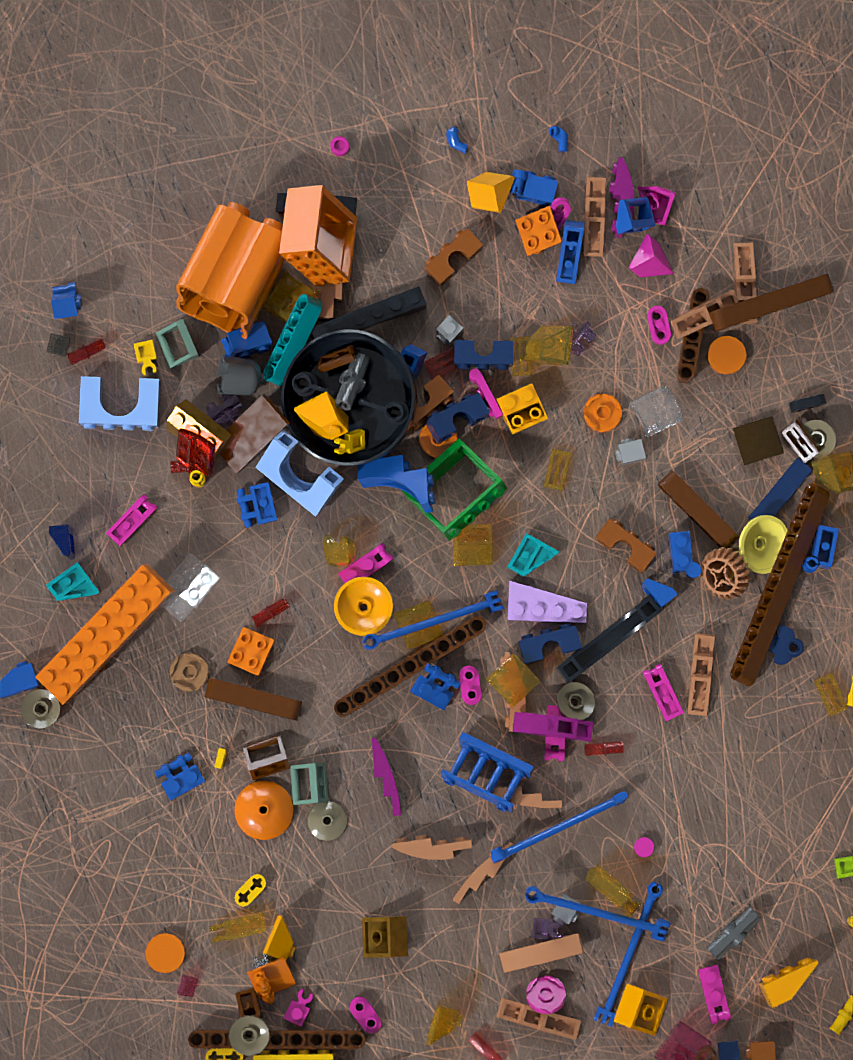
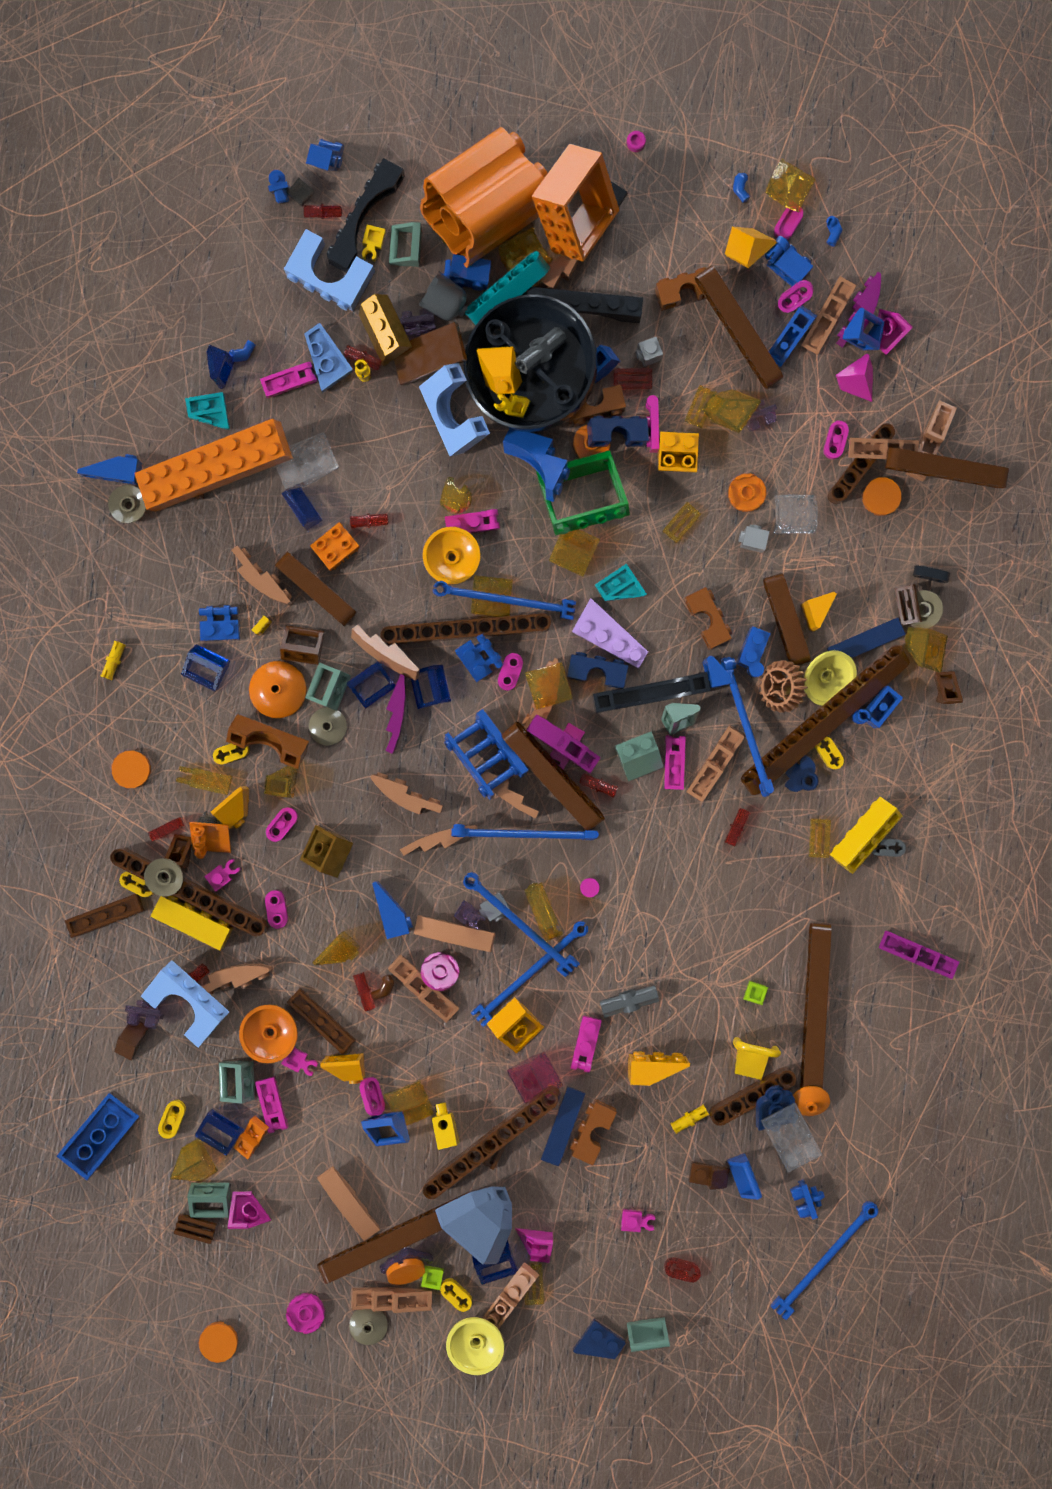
camera: 25 degrees right, 5 degrees up
(36, 349) = (279, 186): none -> blue hips
(77, 518) = (242, 354): none -> blue arm
(98, 860) = (113, 660): none -> yellow pin
(130, 296) = (384, 182): none -> black arch
(156, 482) = (326, 357): none -> medium blue wing
(179, 814) = (208, 659): none -> clear blue tile
(187, 985) = (135, 807): clear pink slope -> none
(189, 672) = (272, 537): medium nougat tile -> none
(195, 450) = (372, 344): clear red slope -> none
(203, 631) = (302, 507): none -> clear blue tile
(205, 718) = (265, 583): none -> nougat slope
(226, 992) = (166, 829): none -> clear red beam
(258, 862) = (248, 732): none -> dark orange arch
(262, 502) = (409, 422): blue plate -> none
(311, 893) = (281, 782): none -> clear yellow slope
(332, 933) = (282, 824): none -> dark pink plate
(337, 358) = (537, 324): reddish brown tile -> none
(339, 756) = (364, 676): none -> clear blue tile
(354, 727) = (389, 656): none -> nougat slope
(410, 731) = (438, 686): none -> clear blue tile
(466, 356) = (681, 397): dark blue arch -> none
(476, 965) = (392, 915): none -> blue slope
(500, 118) = (789, 185): none -> clear yellow slope
(504, 1037) = (386, 988): none -> reddish brown arm
(515, 150) = (788, 223): none -> dark pink tile
(519, 269) = (738, 327): none -> reddish brown beam
(538, 231) = (773, 302): orange hinge -> none
(558, 761) = (553, 776): none -> reddish brown beam
(581, 695) = (601, 727): dark tan dish -> none
(627, 703) = (639, 756): none -> sand green slope
(646, 648) = (679, 716): none -> sand green tile
(666, 578) = (766, 786): none -> blue hinge
(720, 488) = (817, 609): none -> light orange slope
(750, 722) = (737, 827): none -> clear red axle
(758, 440) = (871, 585): dark brown slope -> none
(801, 608) = (832, 750): none -> yellow beam

